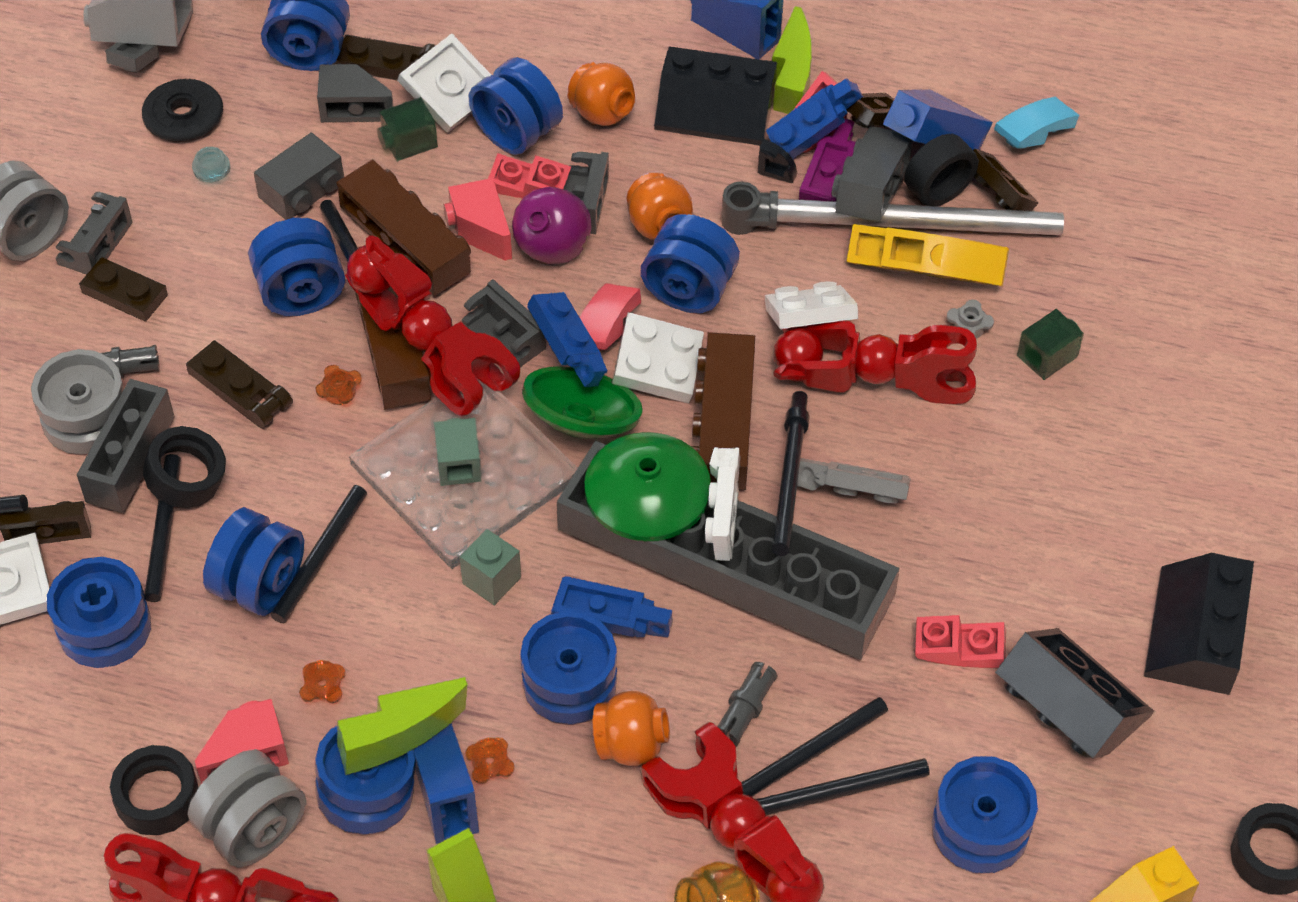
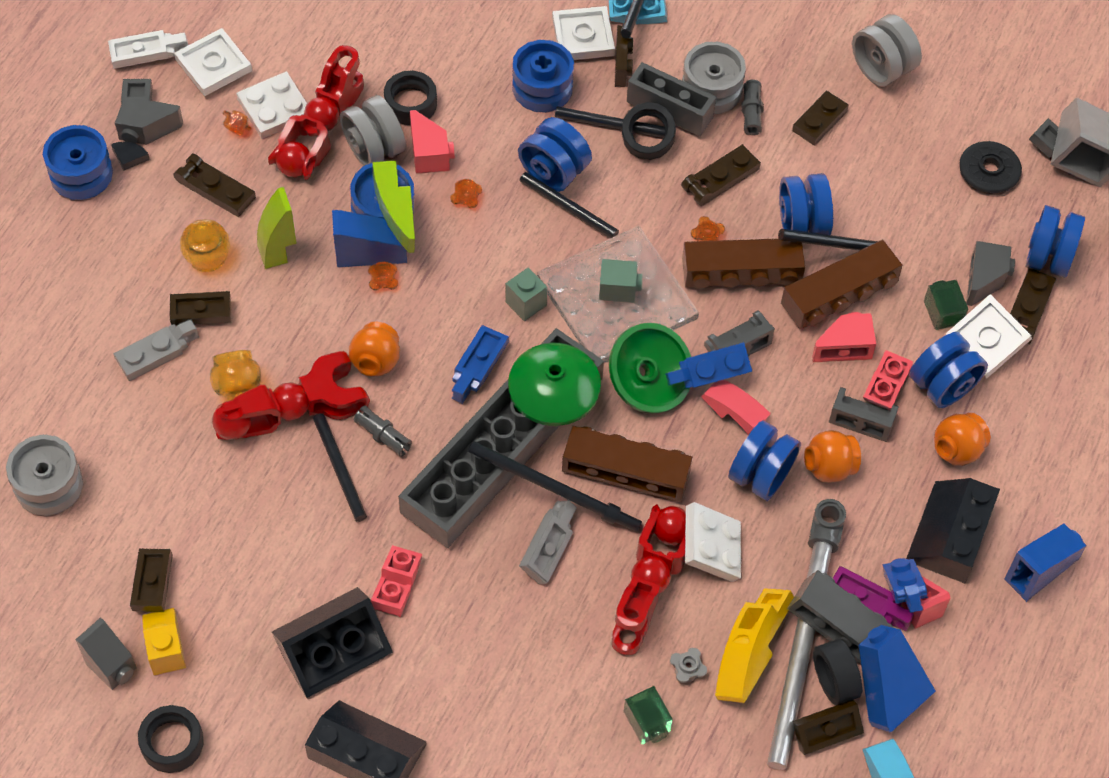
camera: 100 degrees right, 5 degrees up
(97, 235) = (869, 105): dark grey hinge -> none
(210, 164) = (929, 178): clear light blue plate -> none
(299, 176) = (906, 228): dark grey brick -> none
(452, 353) = (719, 266): red piece -> none
(551, 225) = (824, 375): magenta cylinder -> none
(568, 666) = (431, 323): blue wheel -> none
(658, 358) = (693, 430): white plate -> none
(724, 498) = (521, 422): white hinge -> none
(776, 162) = (879, 552): black tile -> none
(793, 63) = (988, 596): lime slope -> none
(844, 786) = (304, 451): black bar -> none
(871, 109) = (920, 638): dark brown plate -> none
(984, 814) = (247, 547): blue wheel -> none

